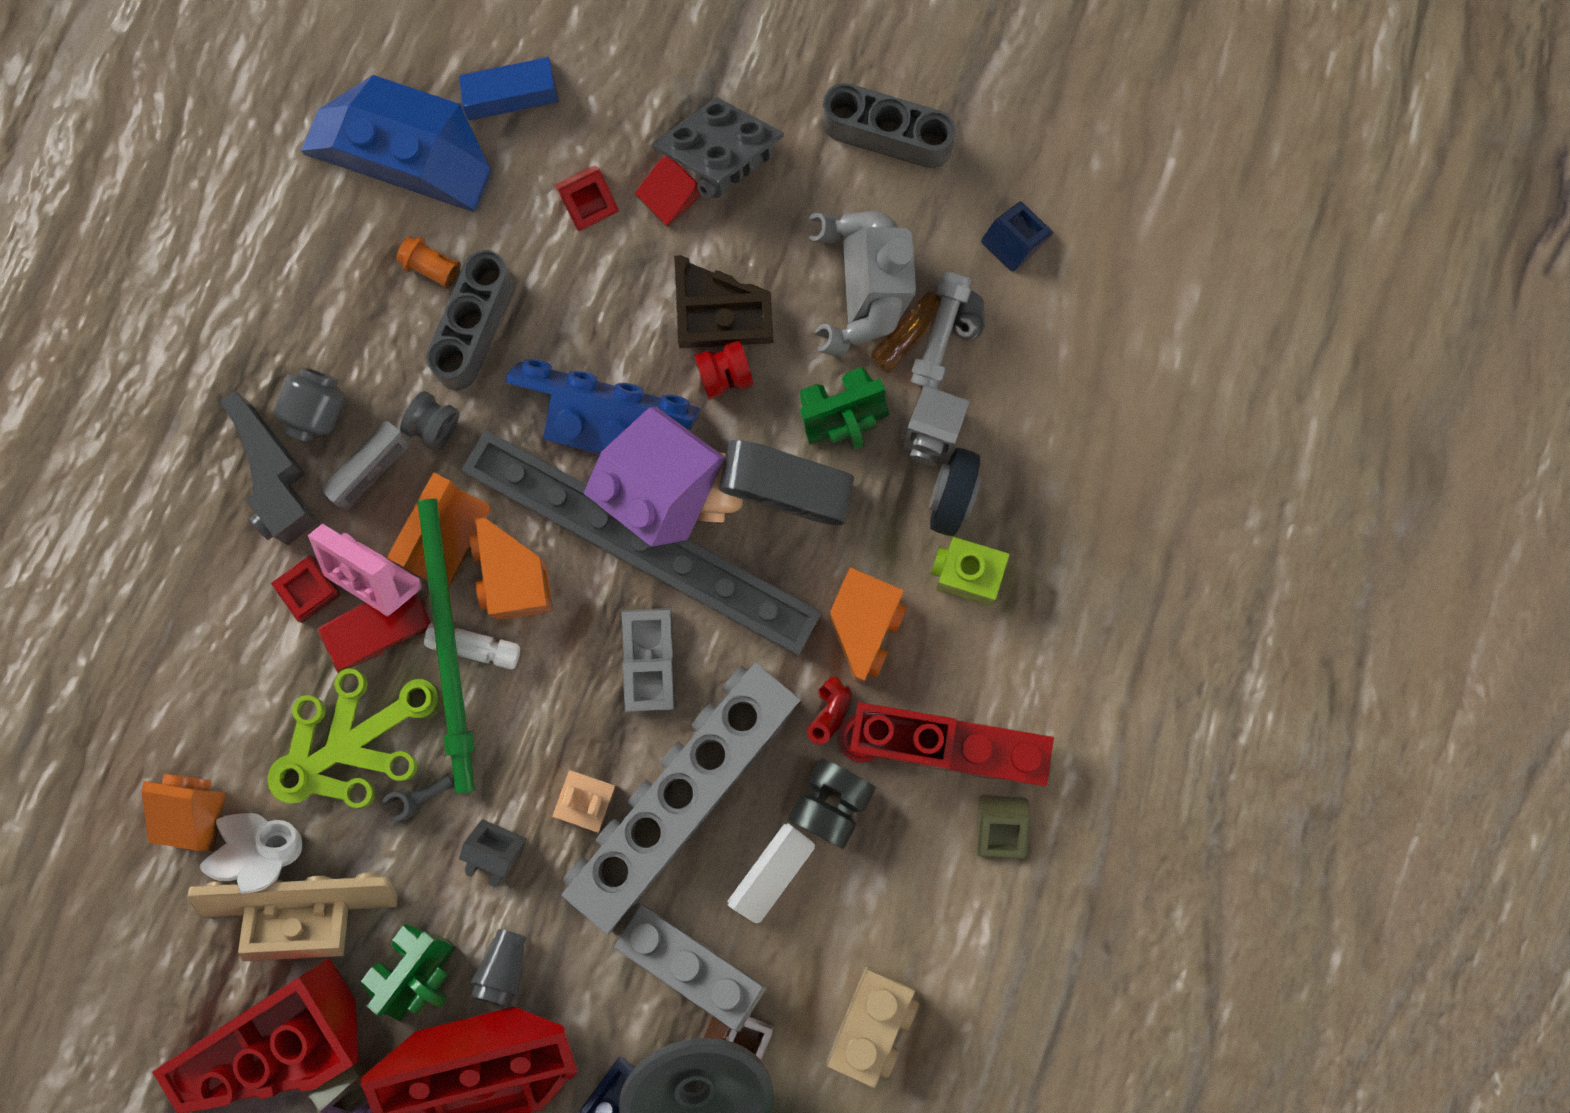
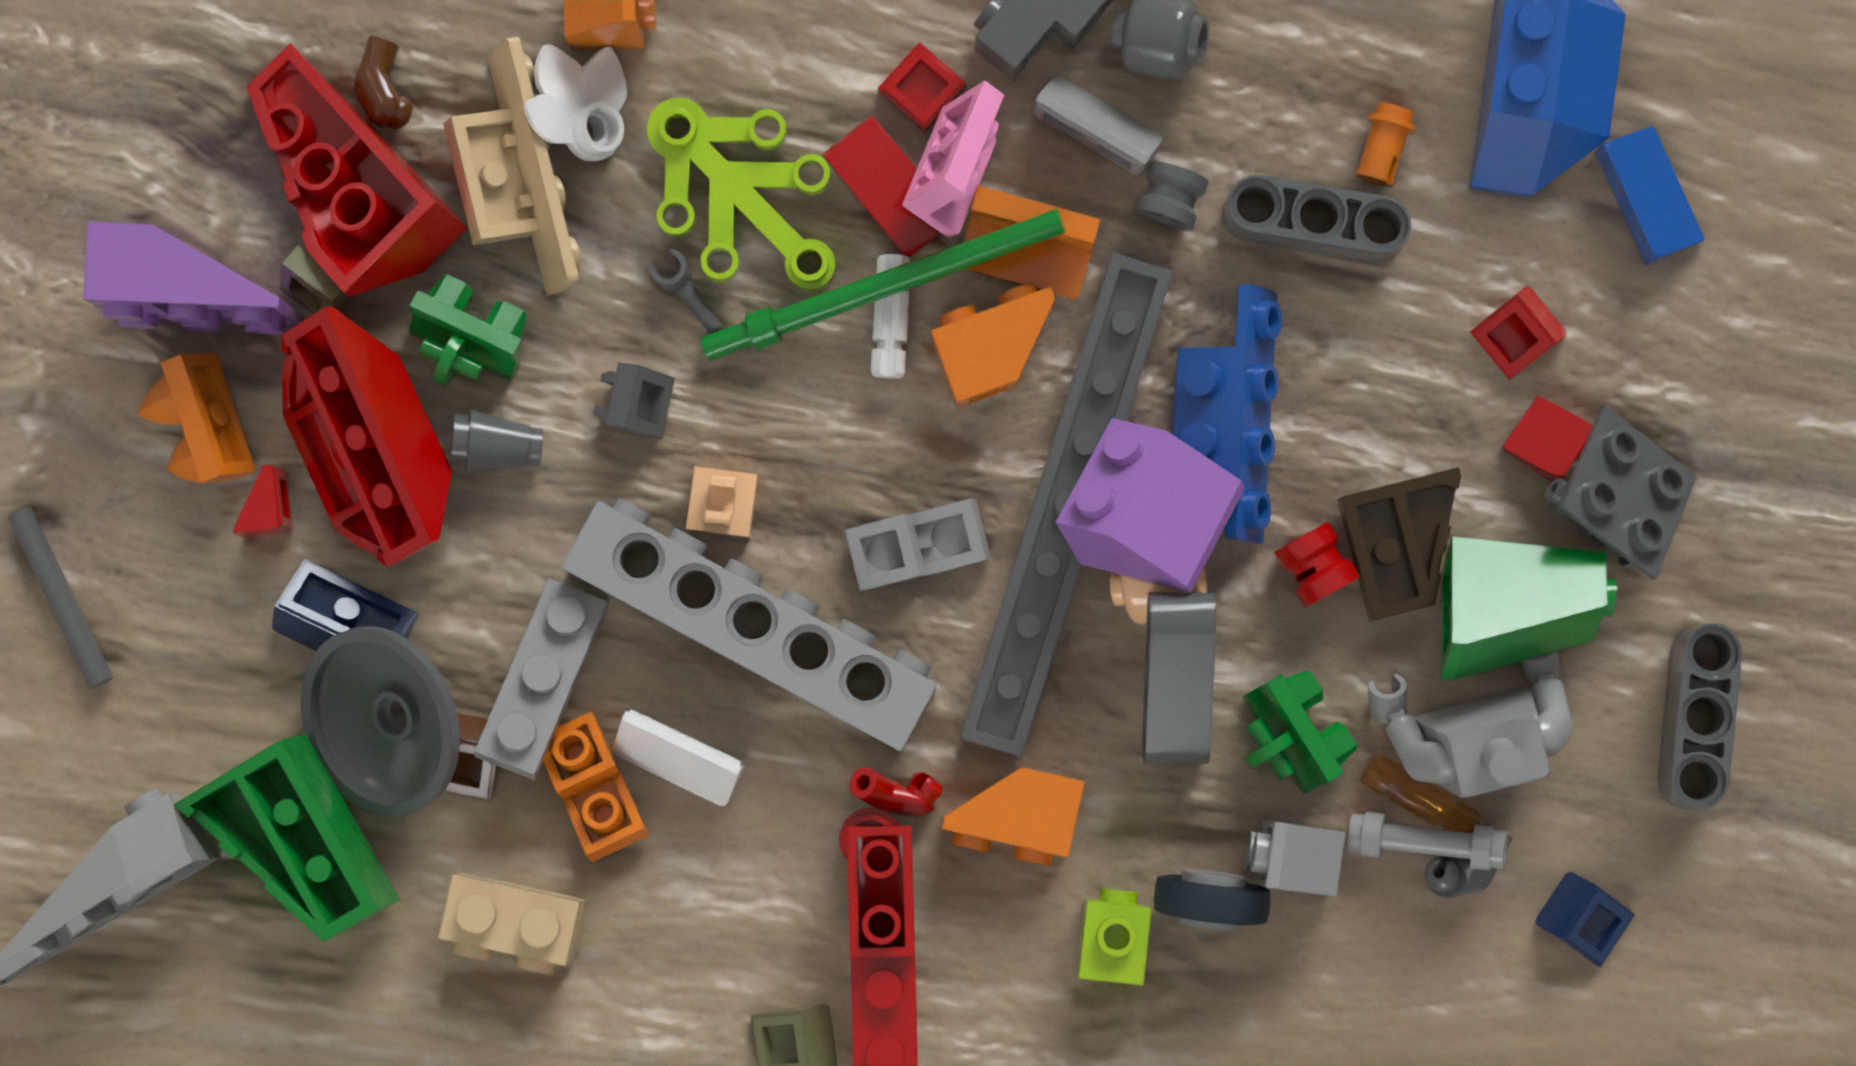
camera: 75 degrees right, 5 degrees up
(202, 1010) = (375, 89): none -> reddish brown arm
(780, 233) = (1517, 602): none -> slope
(782, 943) = (593, 788): none -> orange slope
(824, 819) = (757, 808): pearl dark grey wheel -> none

